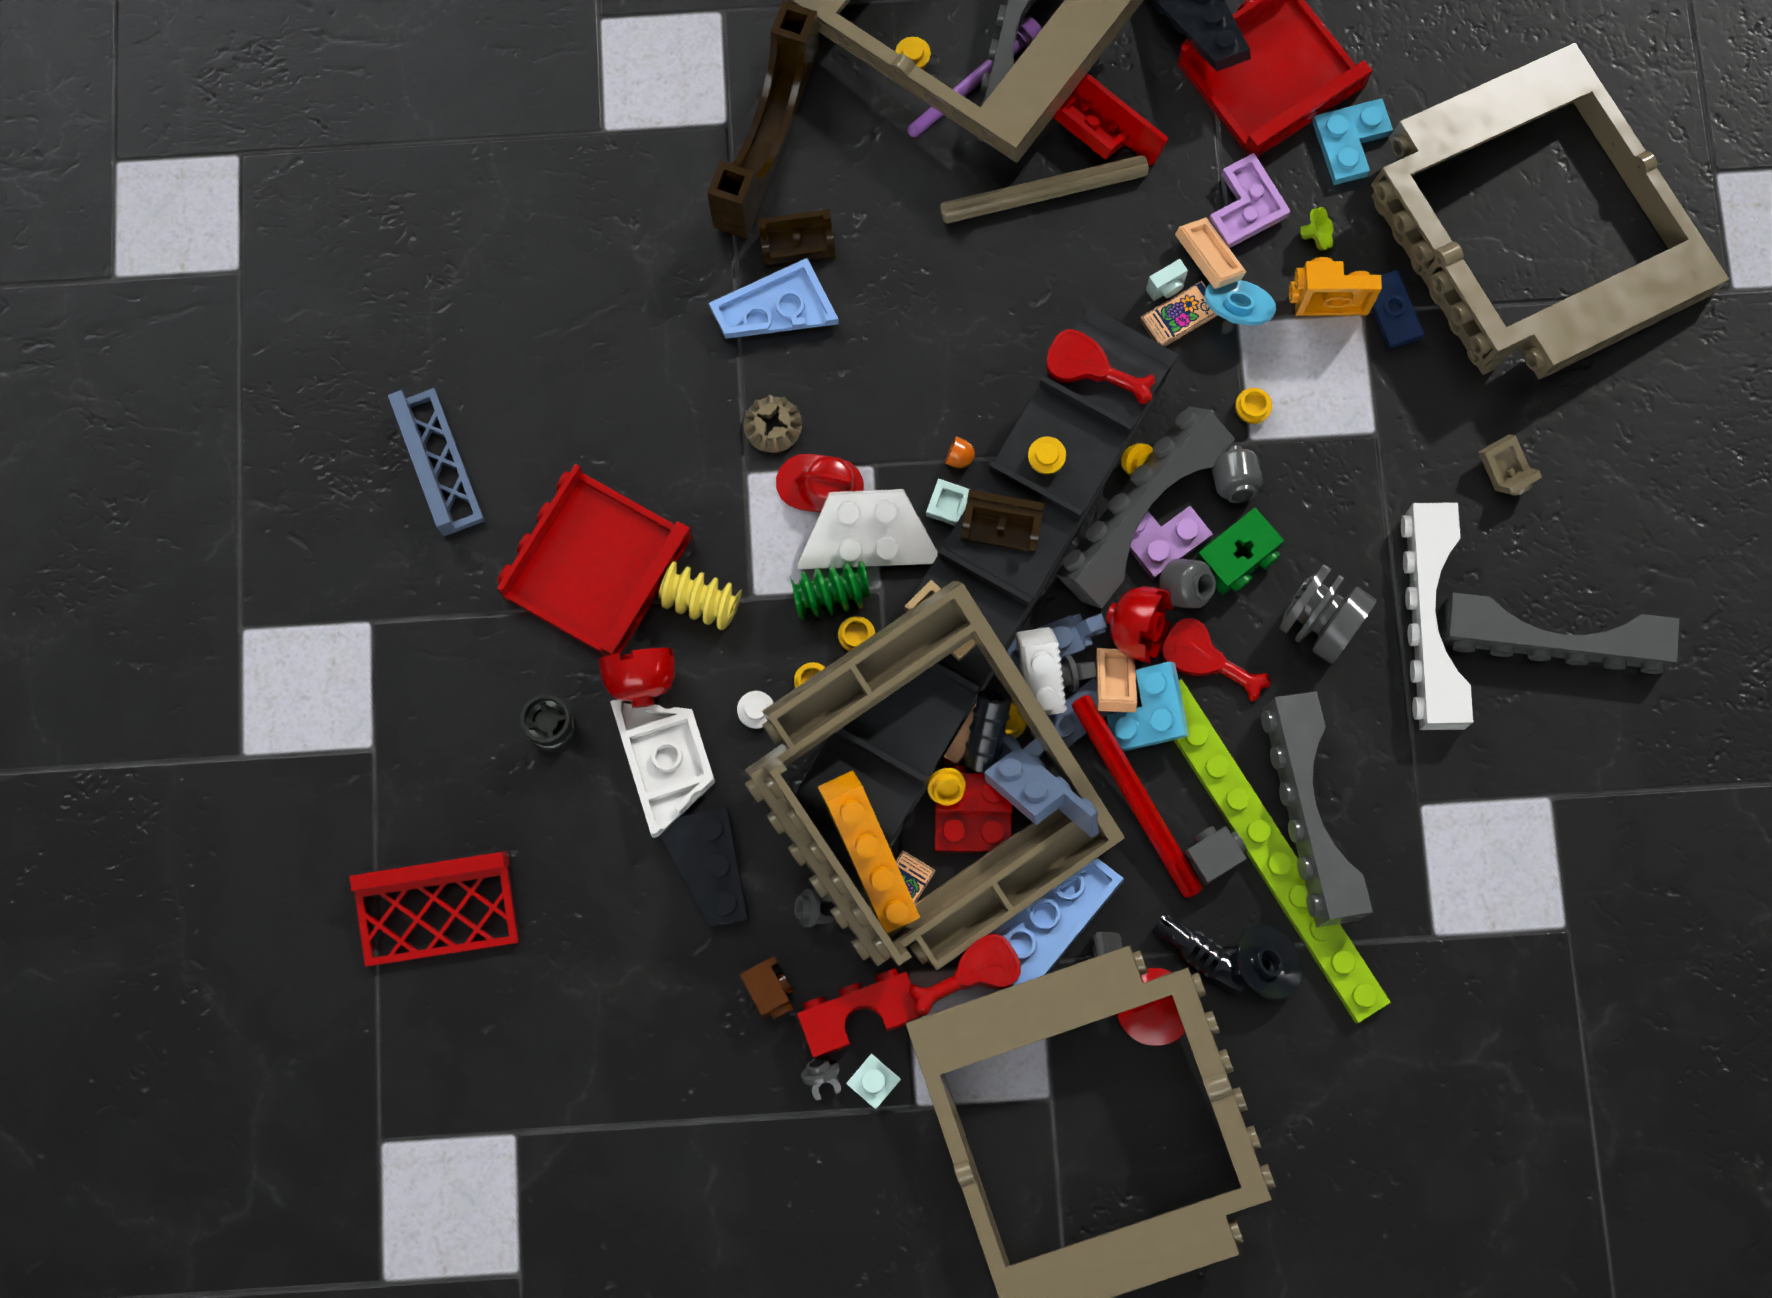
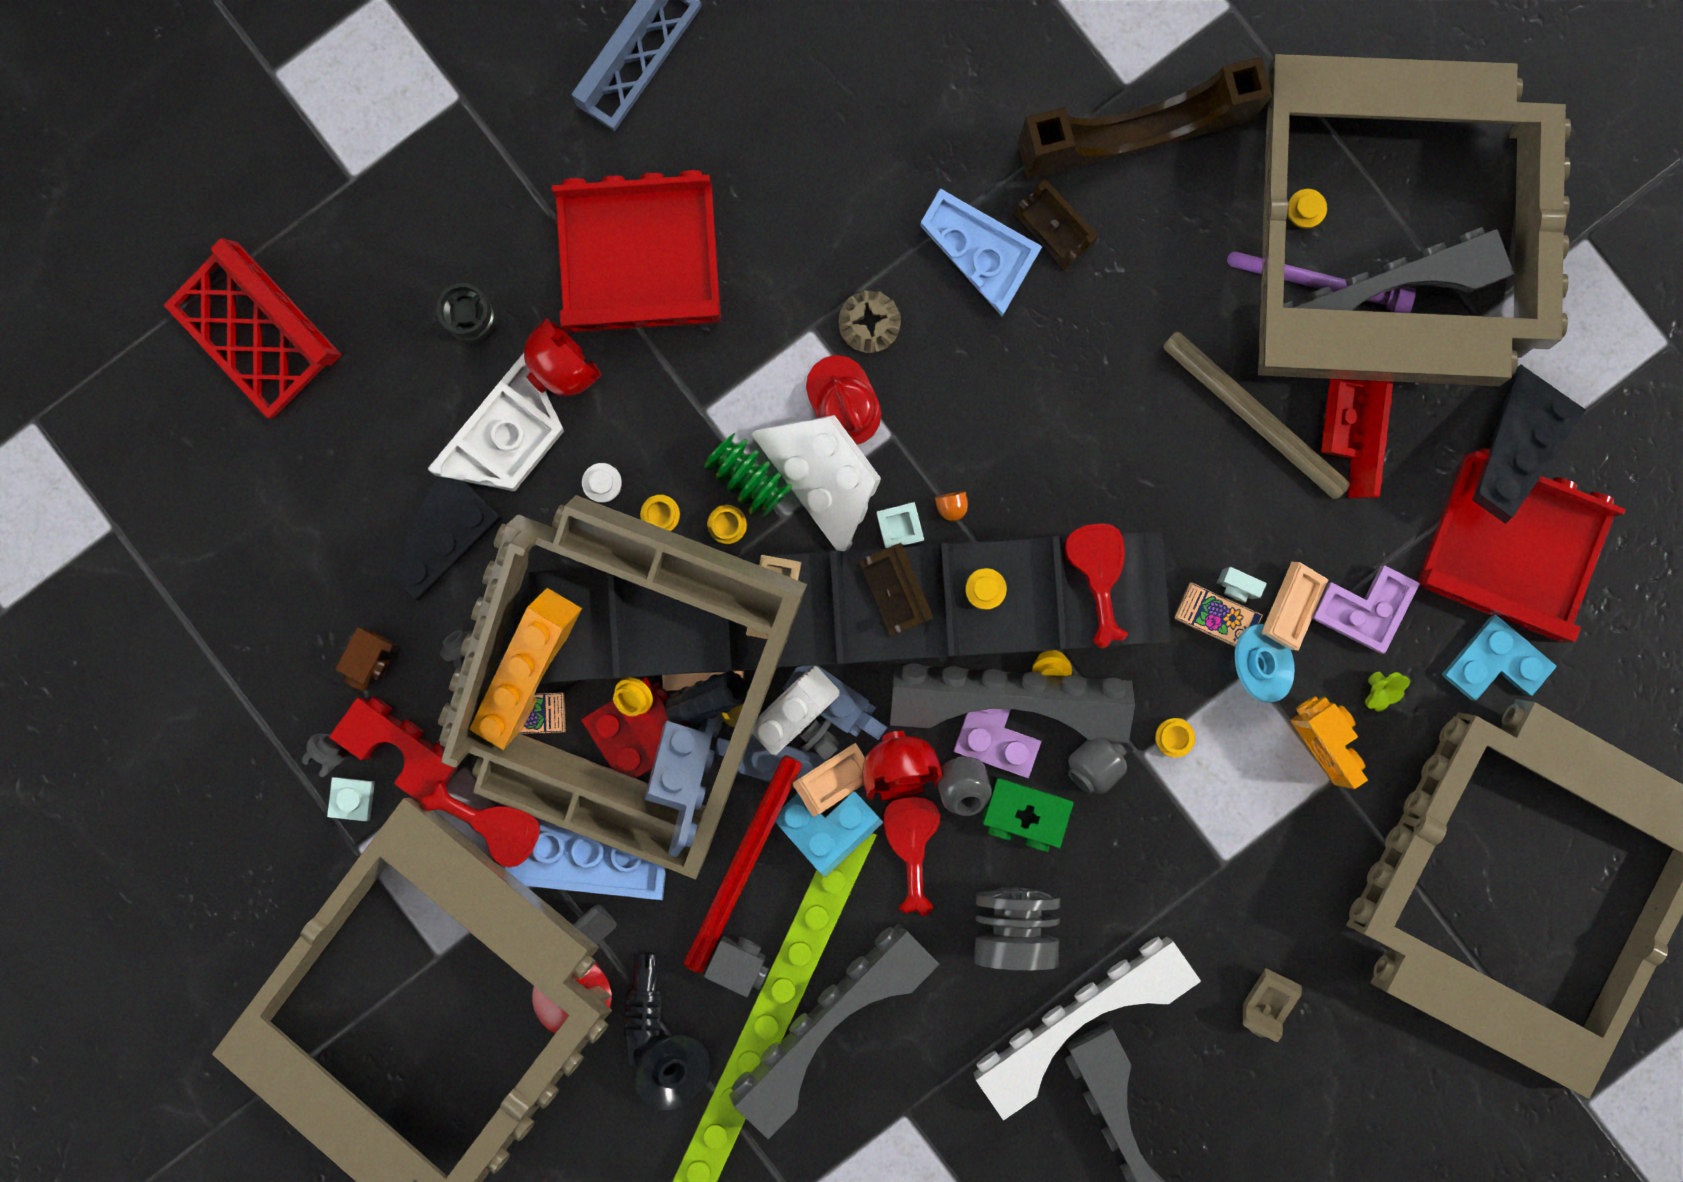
camera: 55 degrees right, 10 degrees up
(698, 597) = (665, 365): light yellow piece -> none
(1395, 313) = (1353, 808): dark blue plate -> none

